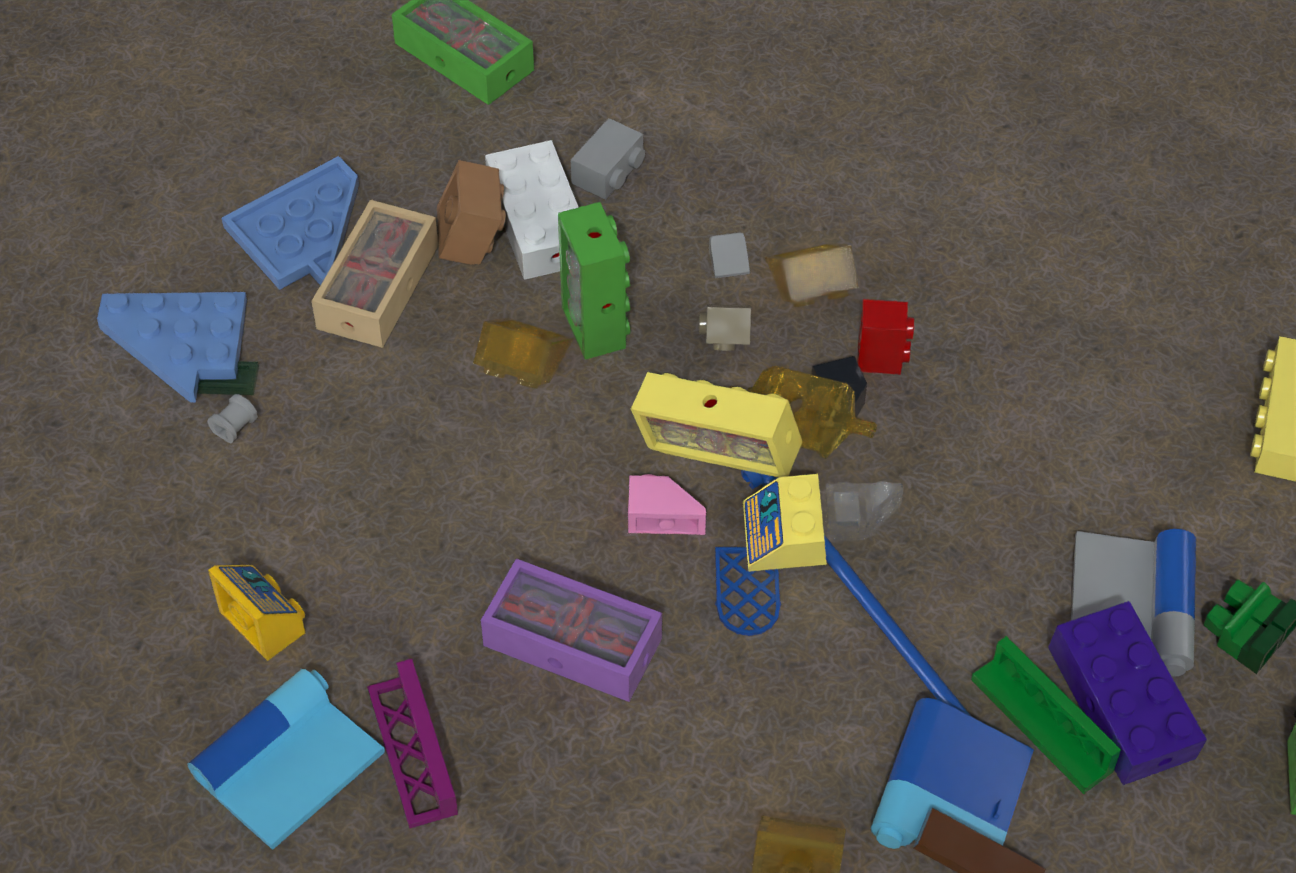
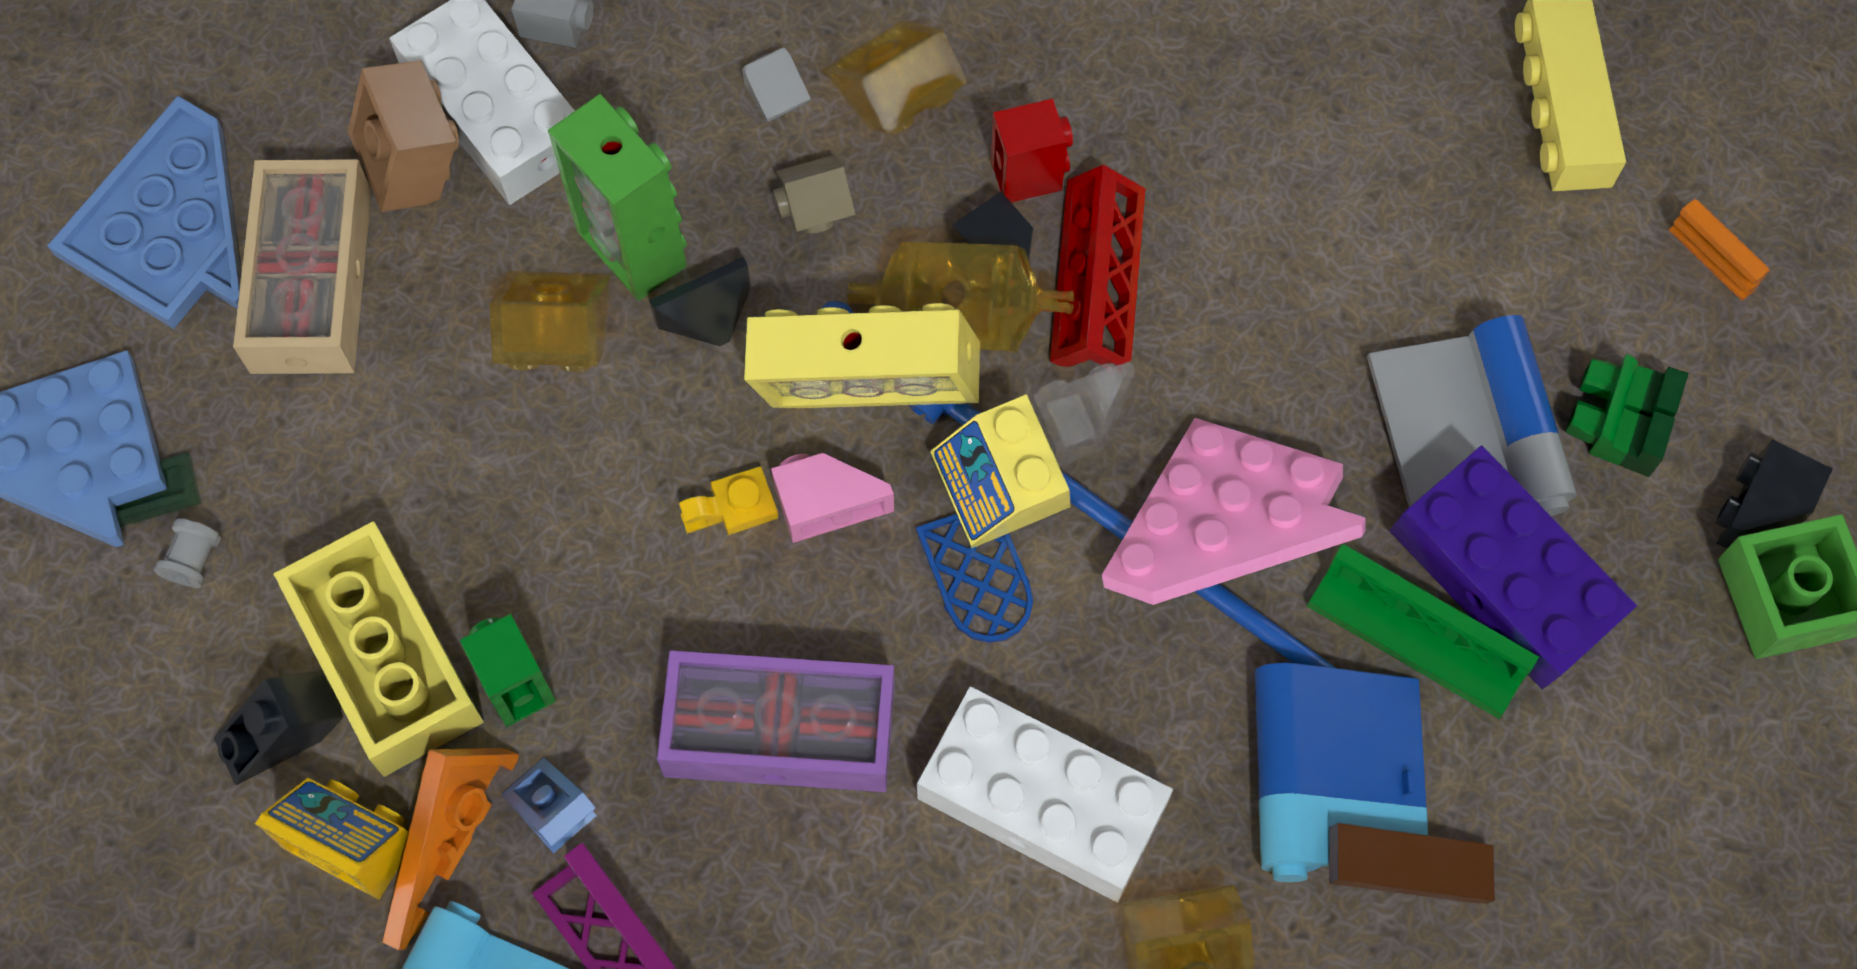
camera: 20 degrees left, 15 degrees up
(247, 532) = (277, 723): none -> black slope
(325, 625) = (441, 829): none -> orange wing
(329, 507) = (378, 649): none -> light yellow brick
(402, 637) = (550, 804): none -> medium blue slope
(406, 541) = (507, 669): none -> green brick
(601, 495) = (738, 502): none -> yellow plate
(626, 369) = (705, 306): none -> black slope
(735, 732) = (1043, 793): none -> white brick
(903, 418) = (1089, 263): none -> red fence
(933, 594) = (1226, 512): none -> bright pink wing

